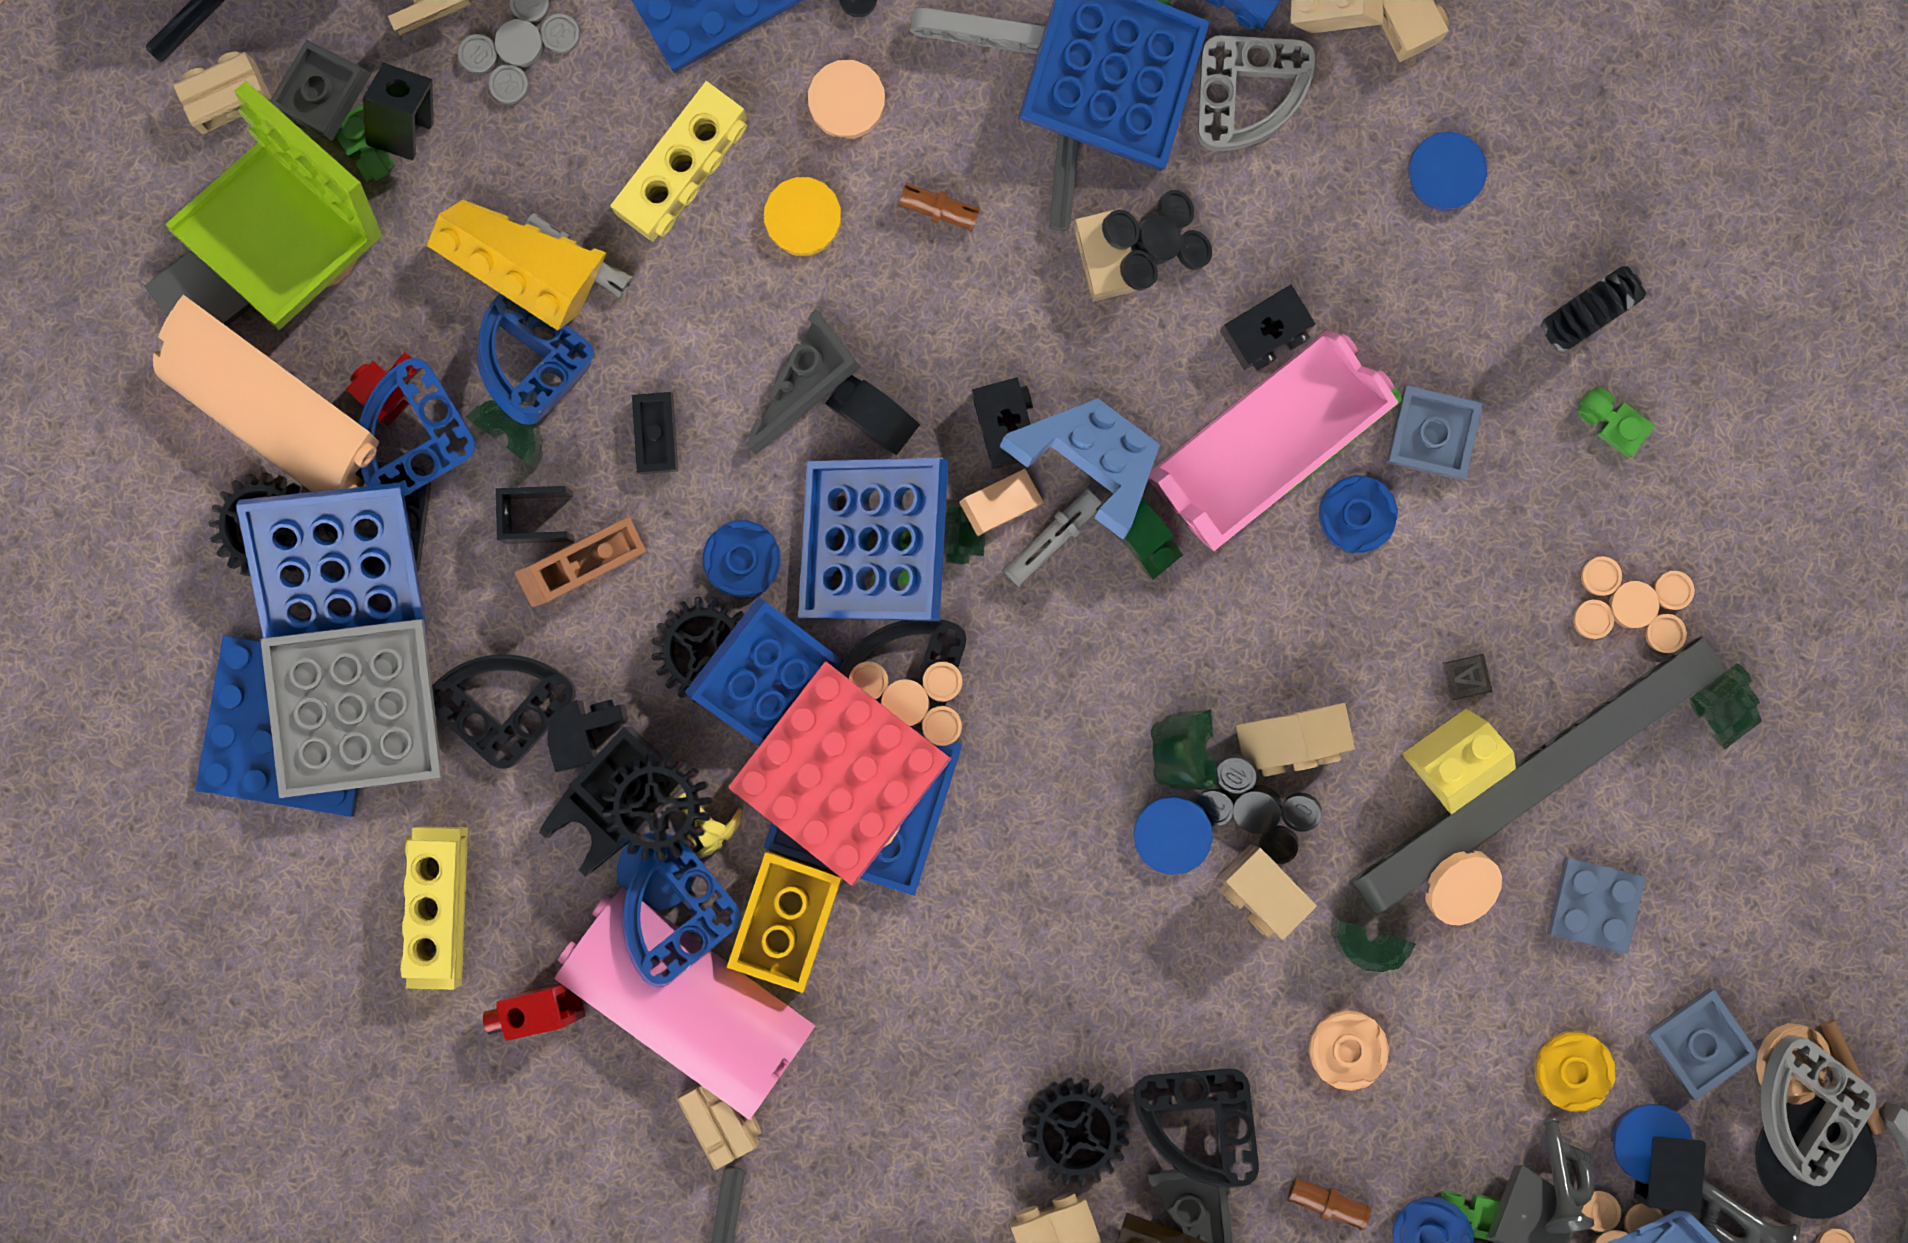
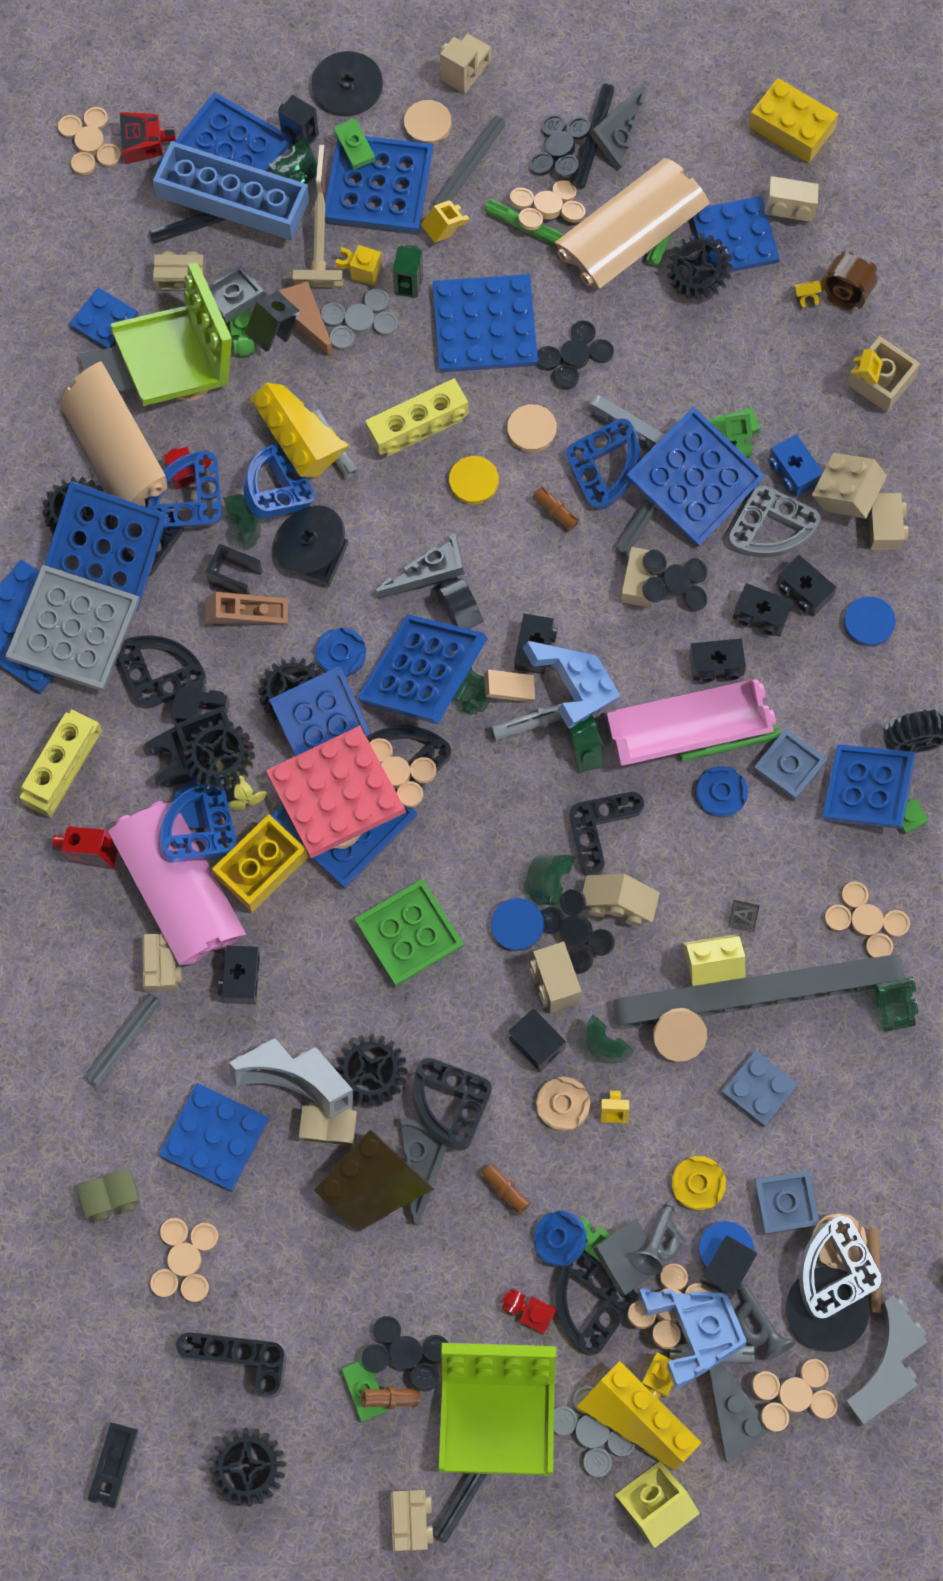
camera: 30 degrees right, 15 degrees down
(140, 211) = (97, 315): none -> blue plate
(450, 81) = (309, 319): none -> nougat slope
(643, 422) = (292, 539): none -> black piece
(853, 1100) = (245, 988): none -> black brick
(951, 101) = (591, 453): none -> blue beam
(996, 1183) = (306, 1074): none -> arch
(1033, 916) = (409, 932): none -> bright green plate
(1205, 633) = (596, 818): none -> black beam
(1277, 986) = (537, 1040): none -> black piece
(1315, 213) = (753, 600): none -> black brick
(1359, 160) = (802, 573): none -> black brick
(1422, 1028) = (614, 1109): none -> yellow tile
(1559, 417) = (869, 786): none -> blue plate

